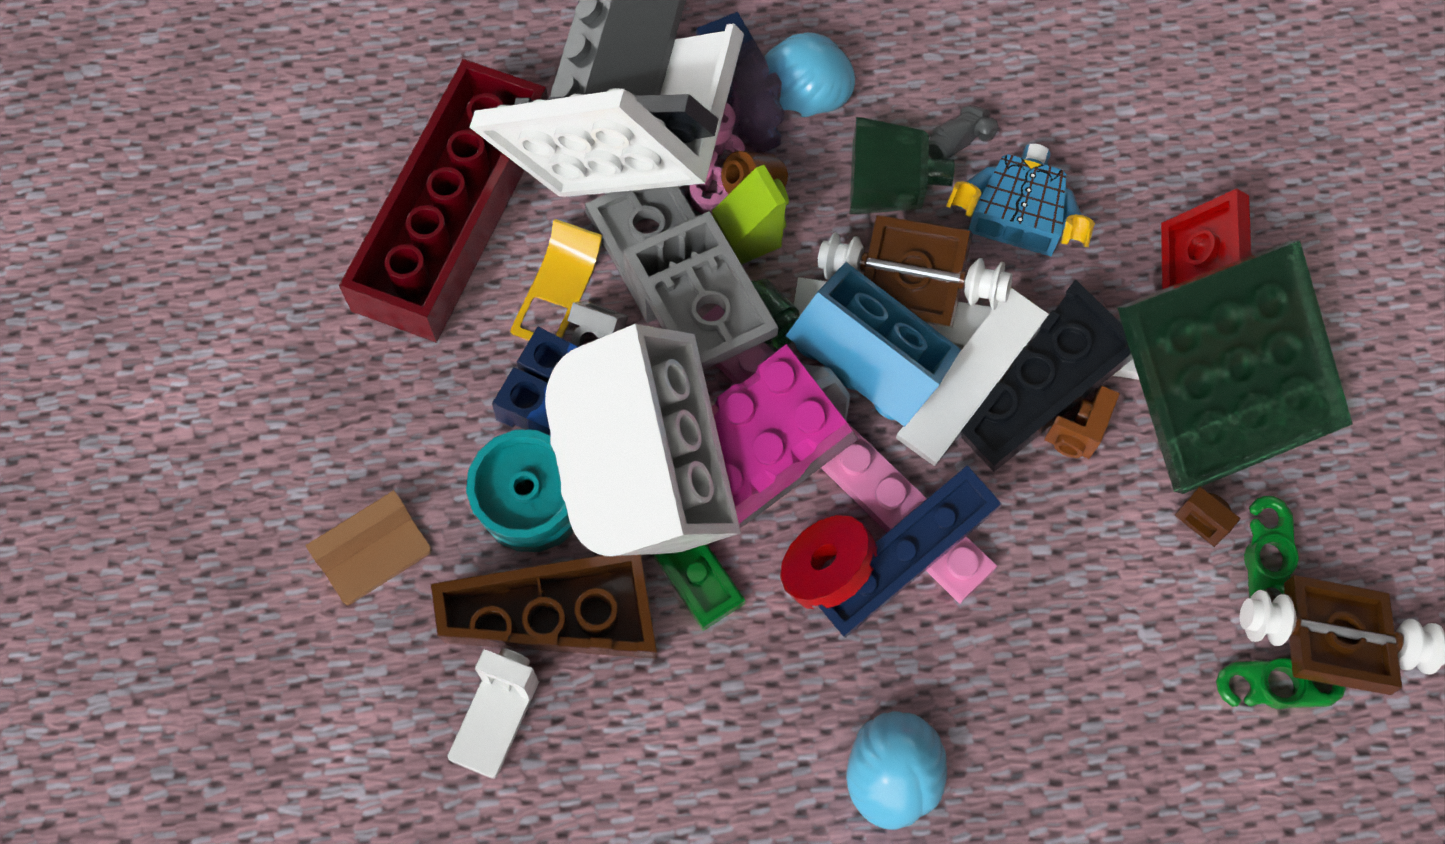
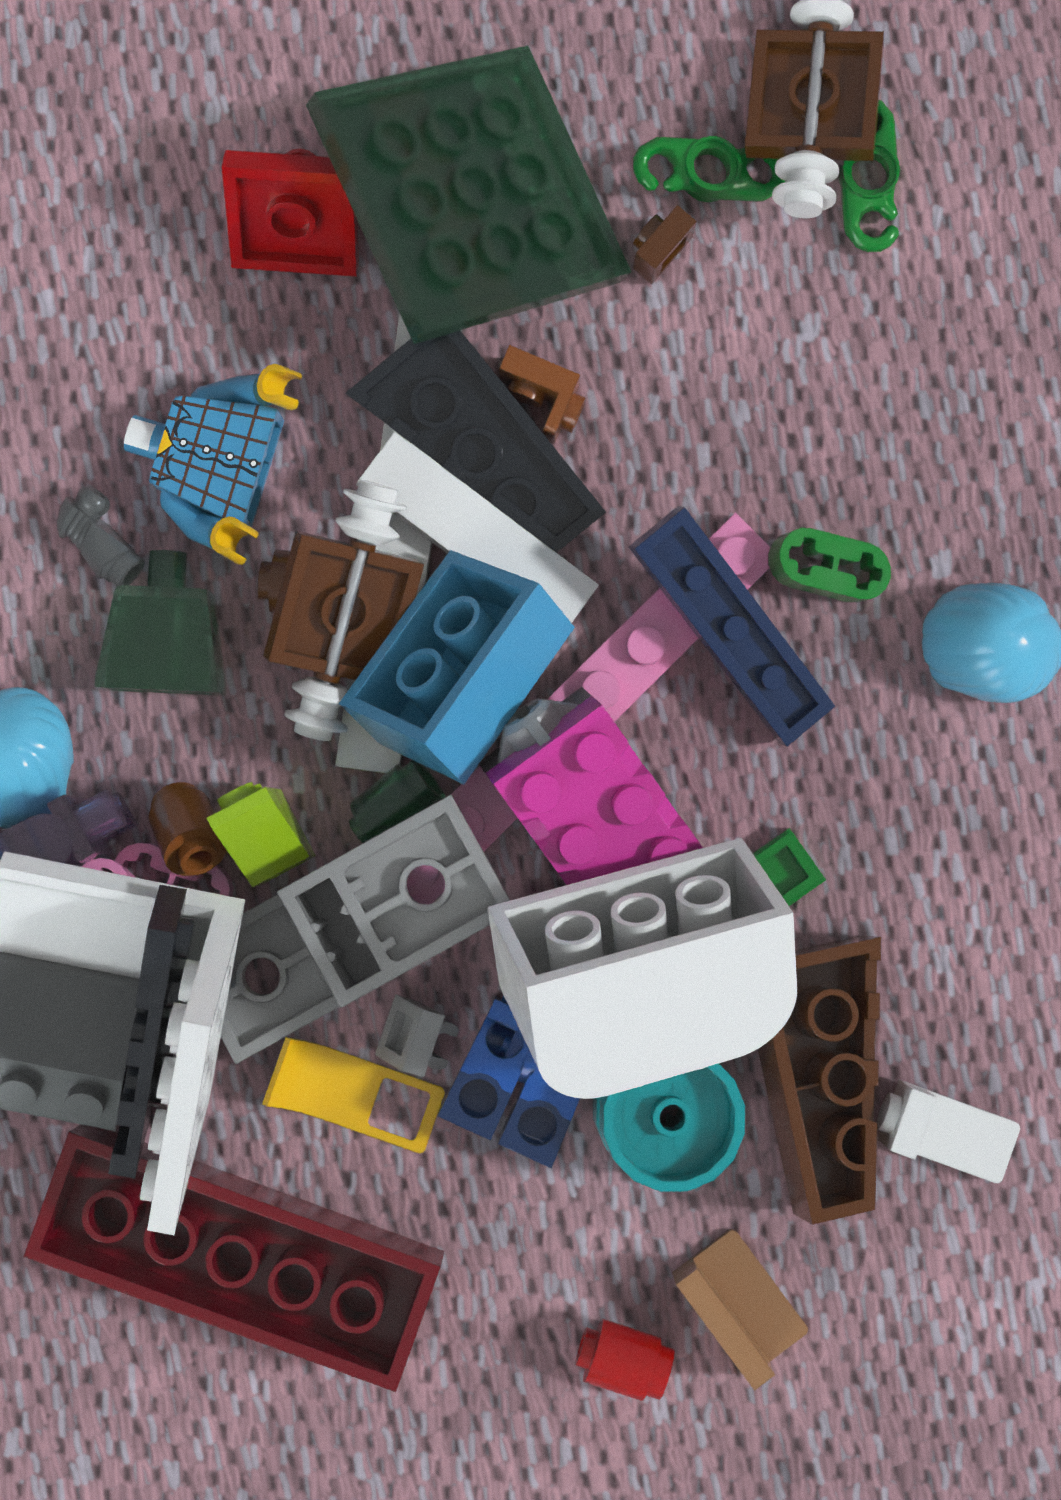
camera: 85 degrees left, 20 degrees up
(339, 460) = (625, 1360): none -> red brick
(826, 538) = (740, 755): red tile -> none
(970, 637) = (833, 551): none -> green beam

